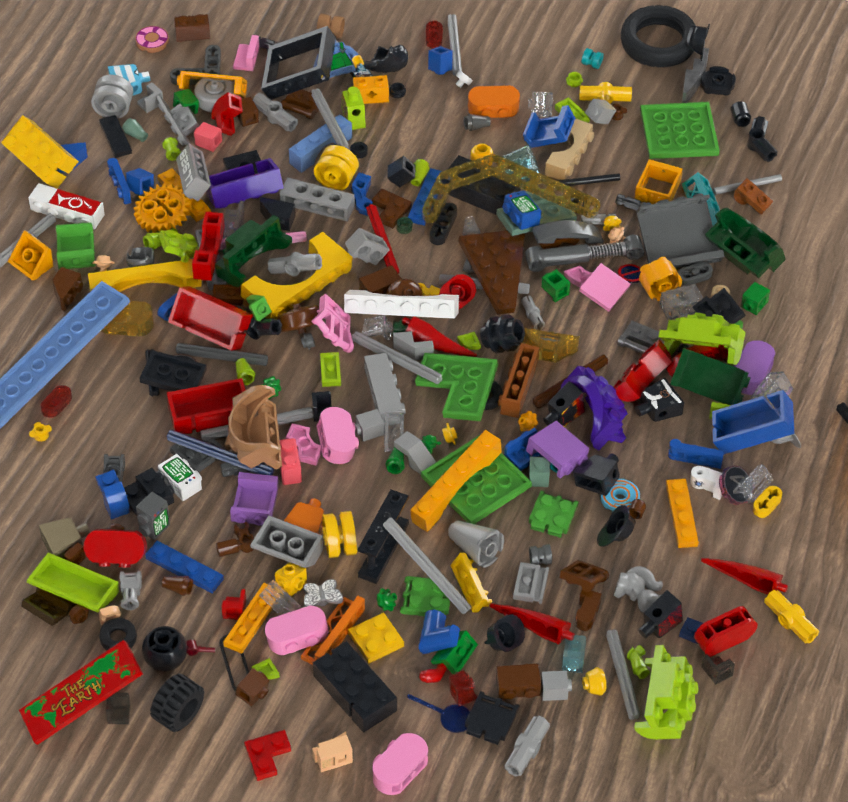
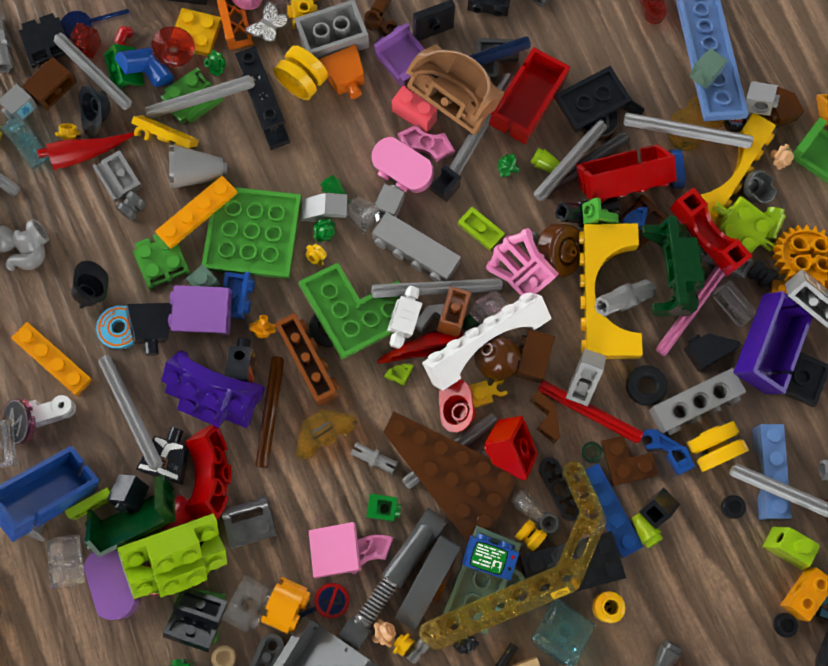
camera: 135 degrees right, 25 degrees up
(79, 284) = (762, 98): none -> light grey brick
(93, 315) = (708, 68): none -> sand green brick
(144, 307) = (688, 130): none -> light grey axle
(181, 477) = (481, 23): brick -> none
(196, 220) = (762, 273): none -> black wheel
(212, 495) = (433, 20): none -> black plate
(233, 297) = (637, 216): none -> blue tile
(233, 354) = (570, 160): none -> light grey axle
(337, 220) = (640, 397): none -> black tyre
(403, 330) = (454, 311): none -> dark orange slope
(405, 626) = (173, 37): none -> clear red dish
(410, 252) = (549, 426): none -> reddish brown slope
(434, 502) = (258, 206): light orange arch -> none
(436, 349) = (404, 317): none -> white piece
(449, 251) = (512, 447): none -> red slope
(468, 211) = (554, 523): none -> dark grey plate
(479, 658) = (93, 71): none -> light grey axle
(485, 214) = (535, 538): none -> yellow wheel
(501, 511) = (196, 212): none -> light orange plate
(502, 333) = (367, 393): black piece -> none
(532, 639) = (67, 131): none -> yellow plate
(579, 572) = (82, 213): reddish brown plate -> none
(587, 613) = (47, 189): reddish brown leg -> none
(637, 508) = (91, 324): reddish brown piece -> none
(658, 436) = (130, 413): none -> light grey axle
(695, 454) = (86, 427): blue plate -> none
(701, 396) = (128, 493): none -> black brick

